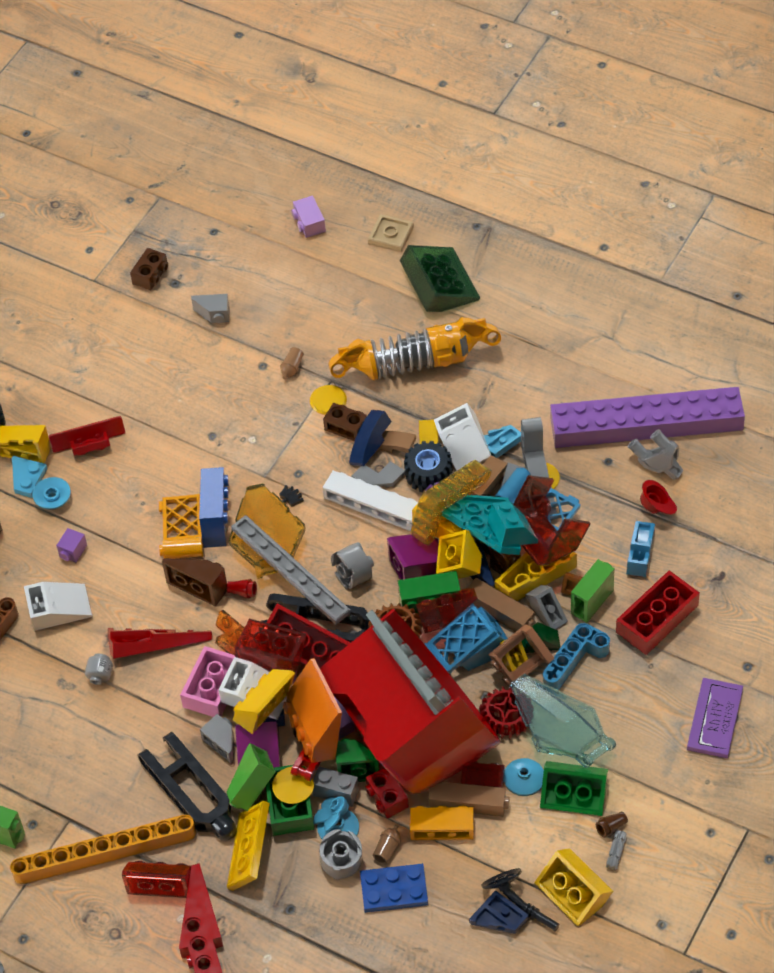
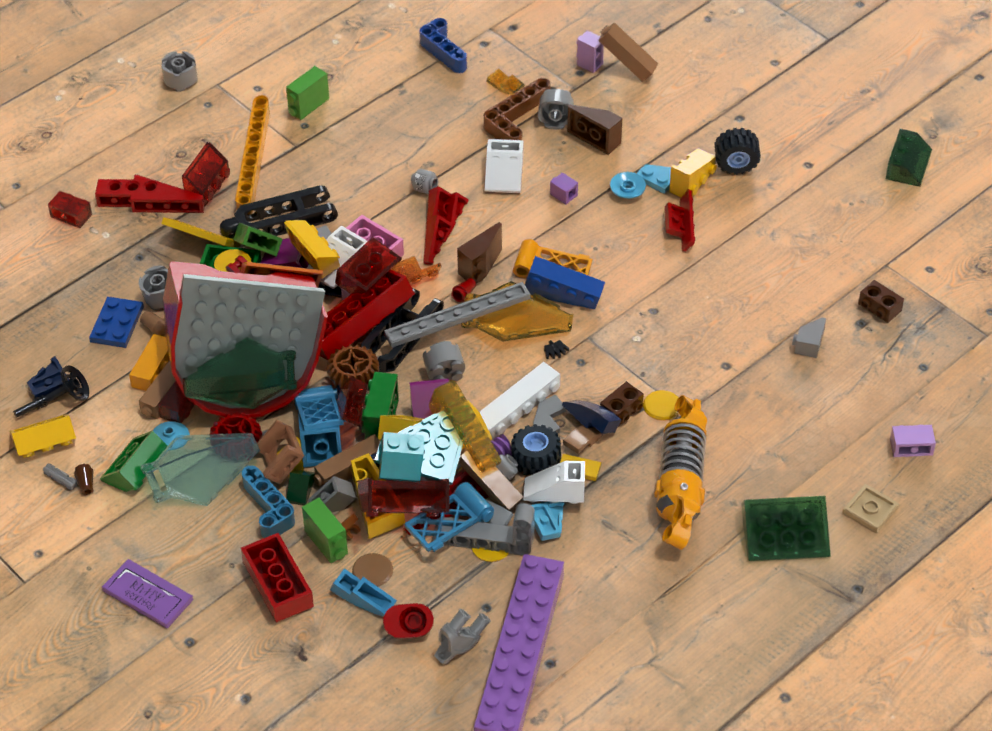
camera: 105 degrees right, 5 degrees down
(290, 365) = (715, 382): medium nougat piece -> none
(452, 679) = (242, 375): none -> clear green windscreen
(607, 551) = (374, 568): none -> medium nougat piece

